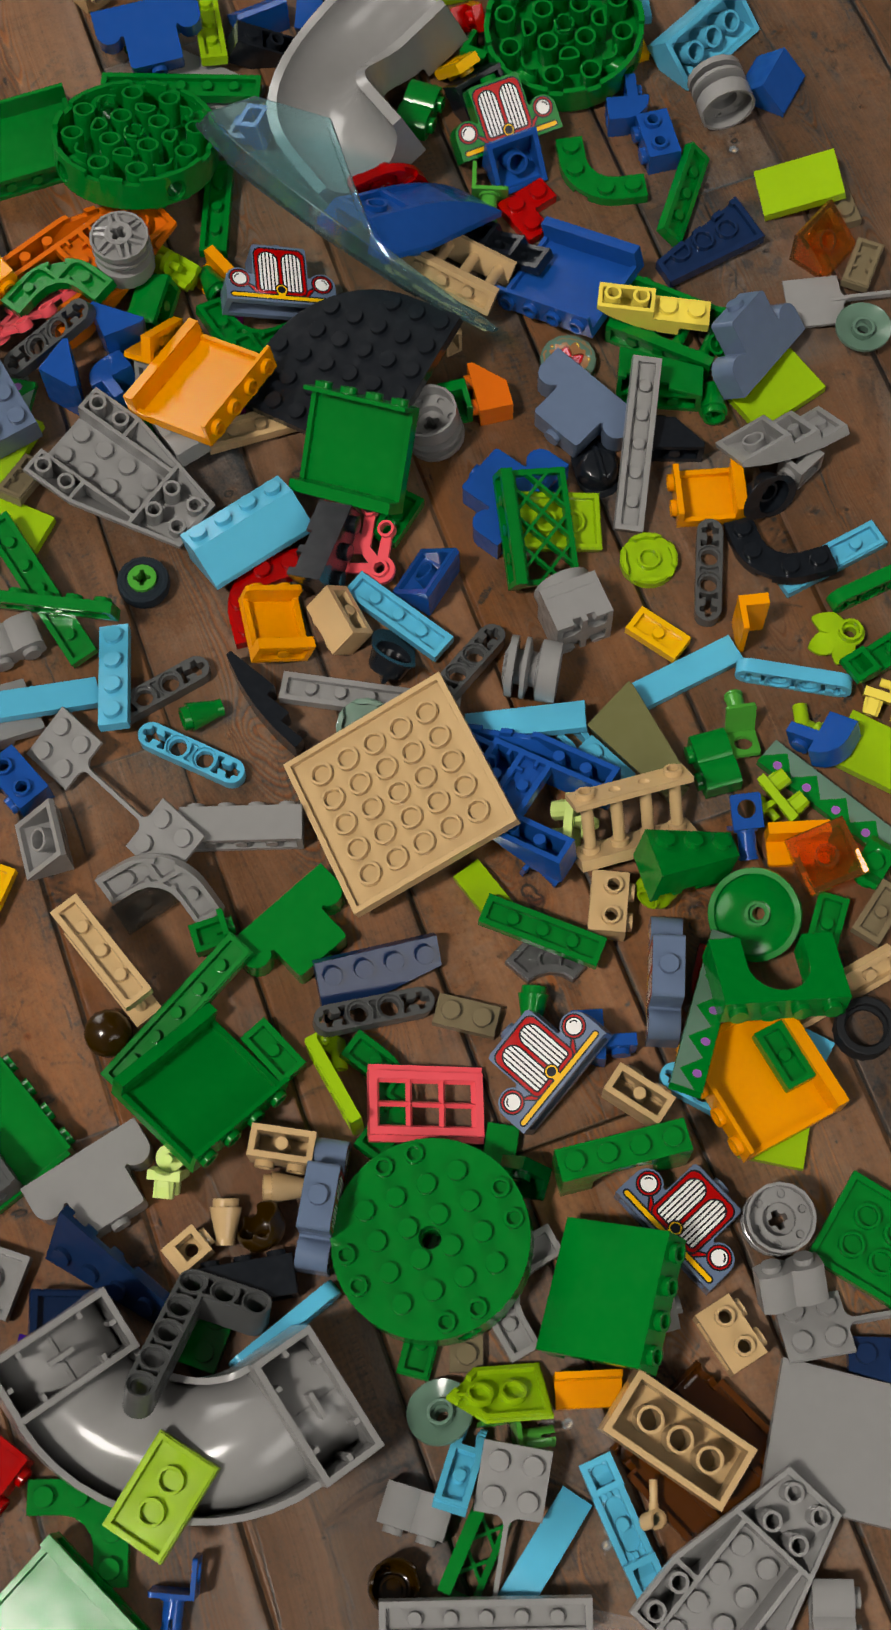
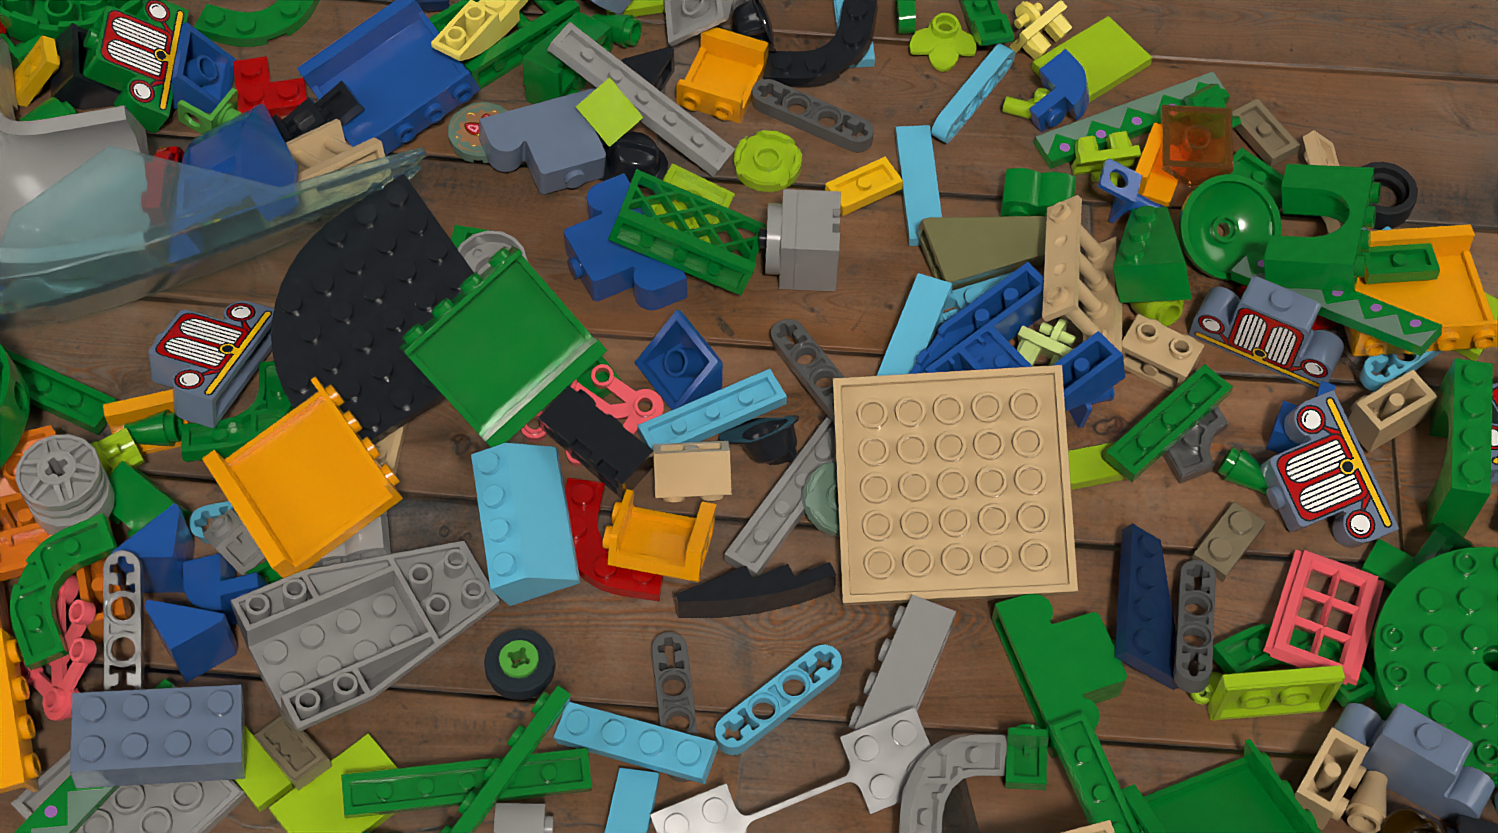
camera: 70 degrees left, 10 degrees down
(153, 341) = (212, 517): light orange panel -> none
(198, 714) = (731, 669): green cone -> none
(273, 1050) = (1198, 750): green plate -> none
(489, 394) = (482, 209): orange slope -> none
(532, 668) = (857, 303): light grey wheel -> none
(610, 427) = (609, 112): none -> lime sticker
(740, 723) = (1000, 154): bright green bracket -> none
(749, 616) = (898, 98): light orange panel -> none

